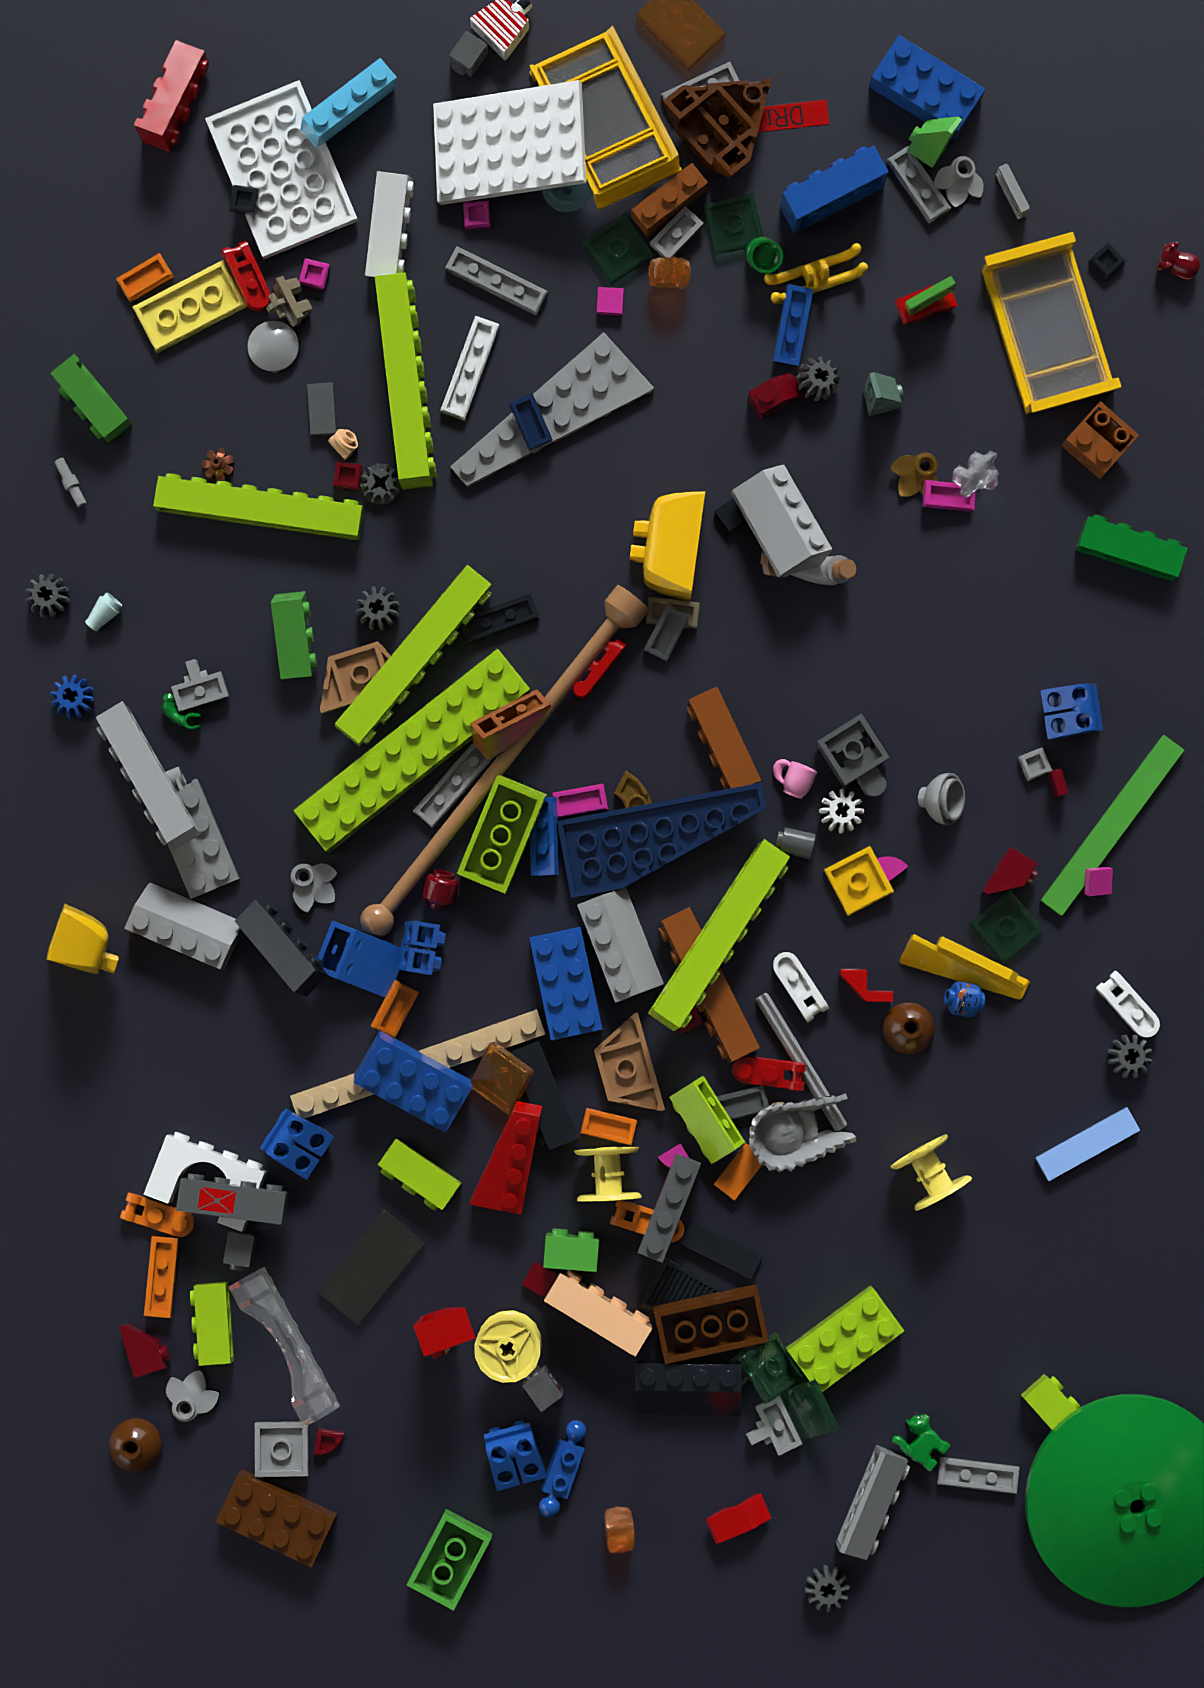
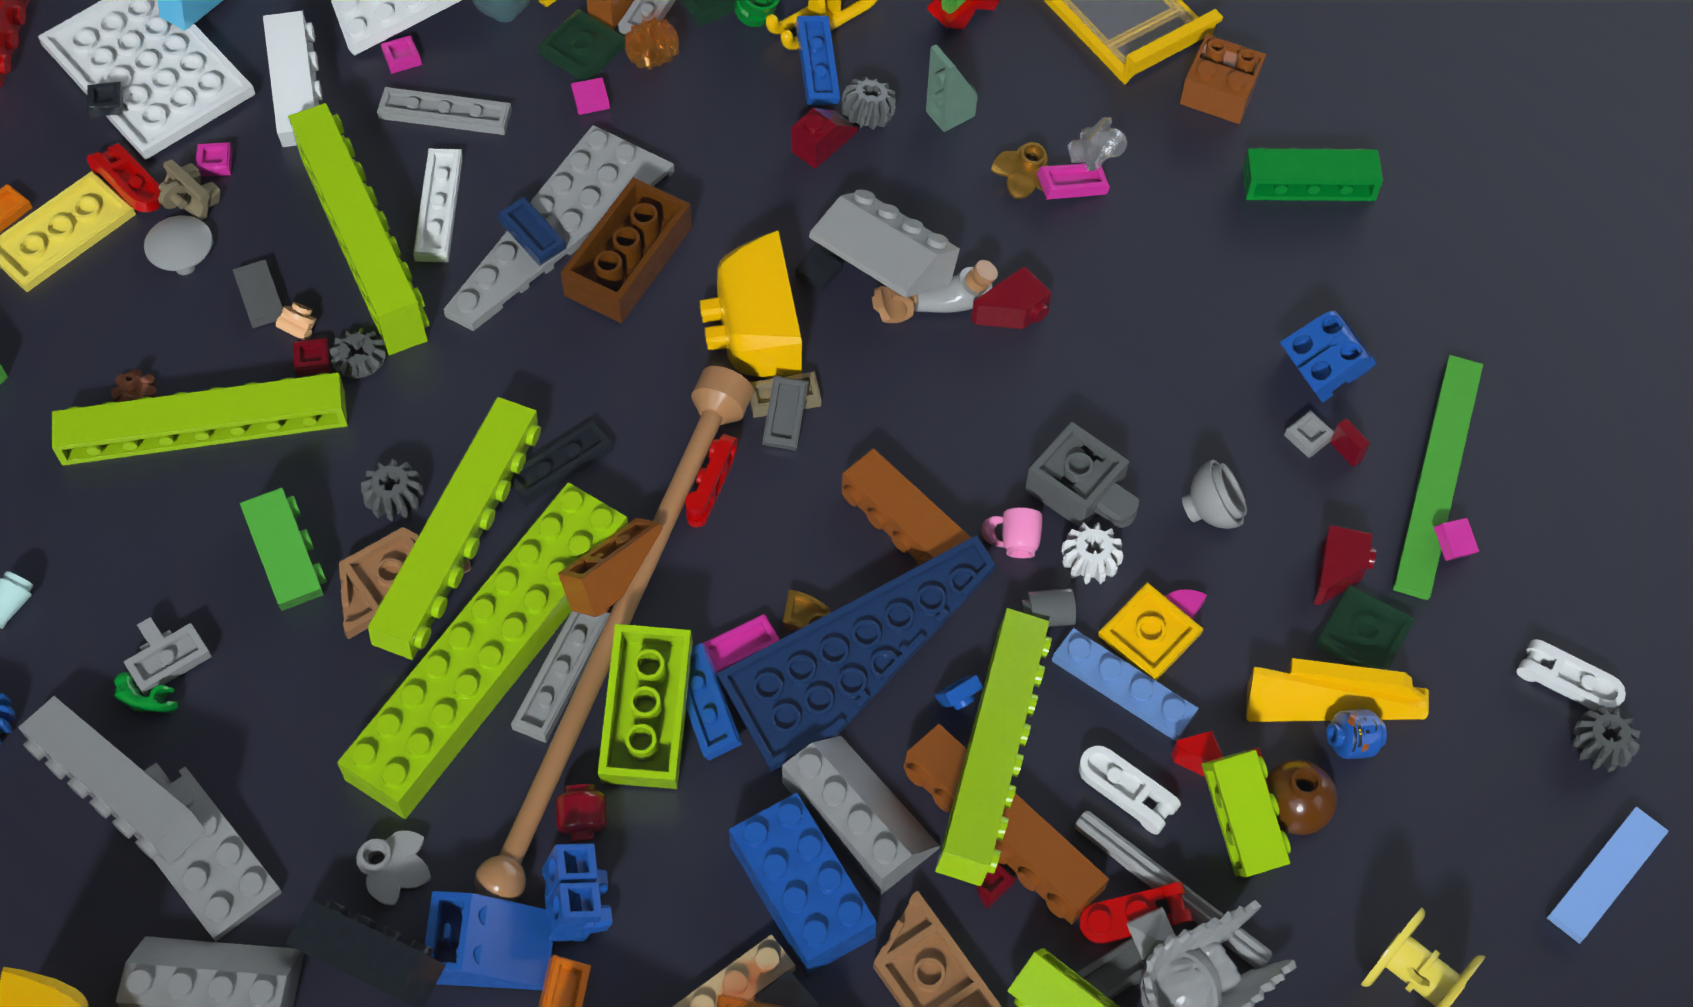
camera: 25 degrees left, 25 degrees down
(595, 460) = (626, 250): none -> reddish brown brick
(712, 884) = (959, 693): none -> blue plate
(774, 1090) = (1149, 931): none -> light grey slope
(827, 911) = (1125, 684): none -> medium blue plate
(863, 591) = (1013, 302): none -> dark red slope
(866, 1033) = (1247, 813): none -> lime brick

